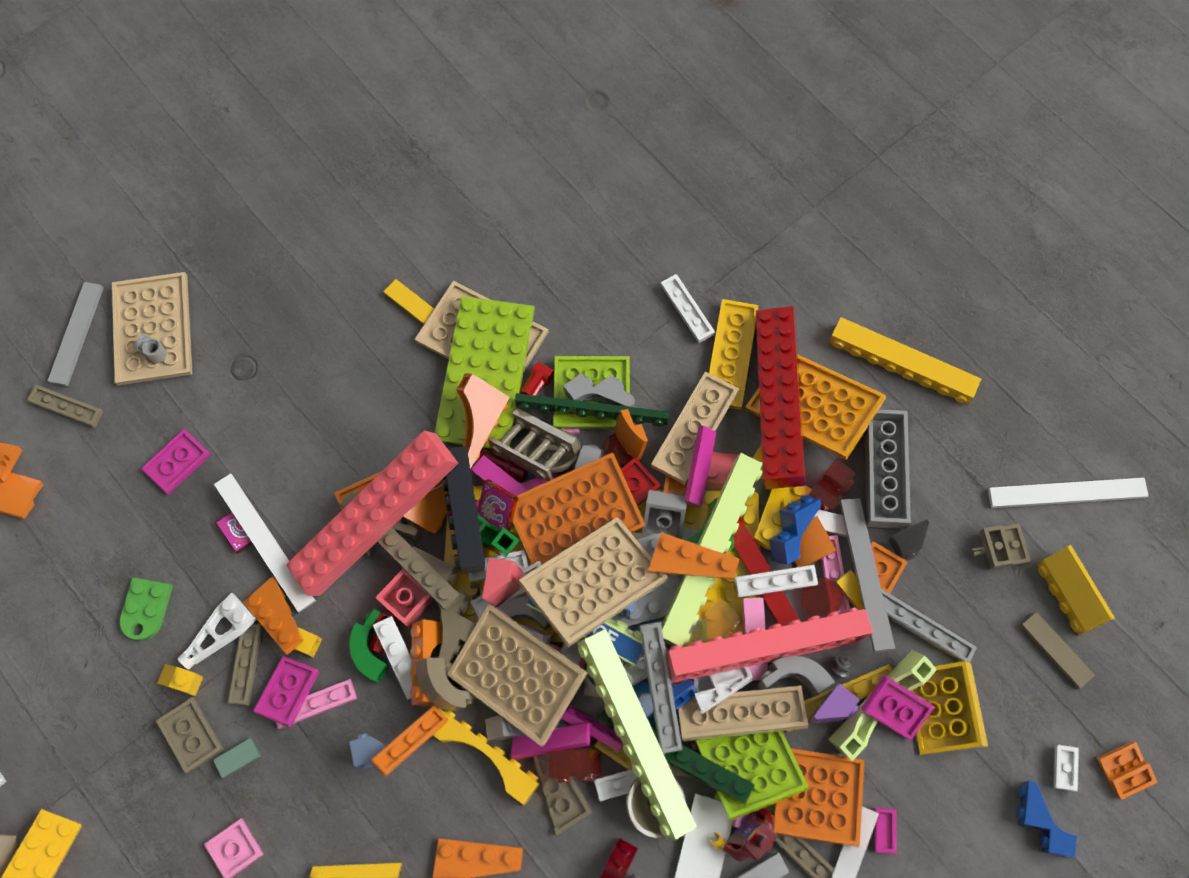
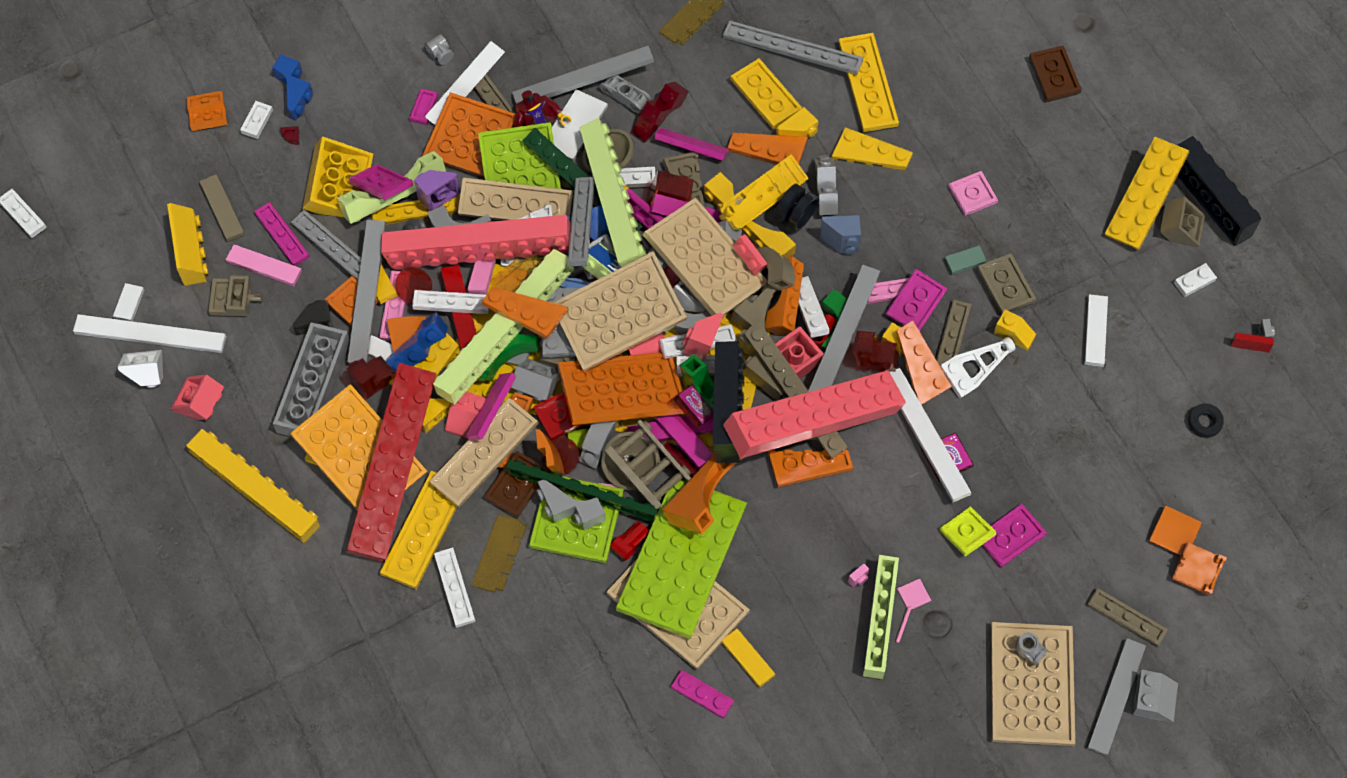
camera: 170 degrees left, 5 degrees down
(41, 337) = (1155, 696): none -> light grey slope
(92, 701) = (1096, 330): none -> white tile
(145, 607) = (1046, 403): bright green plate -> none
(217, 453) = (967, 531): none -> neon yellow tile
(266, 387) = (913, 595): none -> bright pink piece
(292, 354) = (880, 617): none -> yellowish green brick
(317, 390) = (859, 576): none -> bright pink plate
(322, 615) = (874, 354): none -> clear red brick
(356, 631) = (845, 328): none -> light grey tile
(400, 818) = (826, 185): none -> light grey arch
(409, 741) = (808, 226): orange tile -> none
(429, 774) = (796, 207): none -> black wheel
(445, 264) = (702, 694): none -> dark pink plate
(468, 786) = (762, 193): none -> yellow piece
(474, 695) = (749, 254): none -> coral plate
(564, 843) = (691, 144): none -> dark pink tile
(657, 351) = (495, 557): none -> clear yellow windscreen
(663, 399) = (511, 492): none -> reddish brown plate
(981, 633) = (281, 234): none -> dark pink tile
(985, 592) = (263, 265): none -> bright pink tile
(991, 433) = (198, 397): none -> coral slope
(1019, 759) = (291, 134): none -> dark red tile
(1059, 453) = (143, 367): none -> white slope
(1104, 521) = (128, 302): none -> white tile

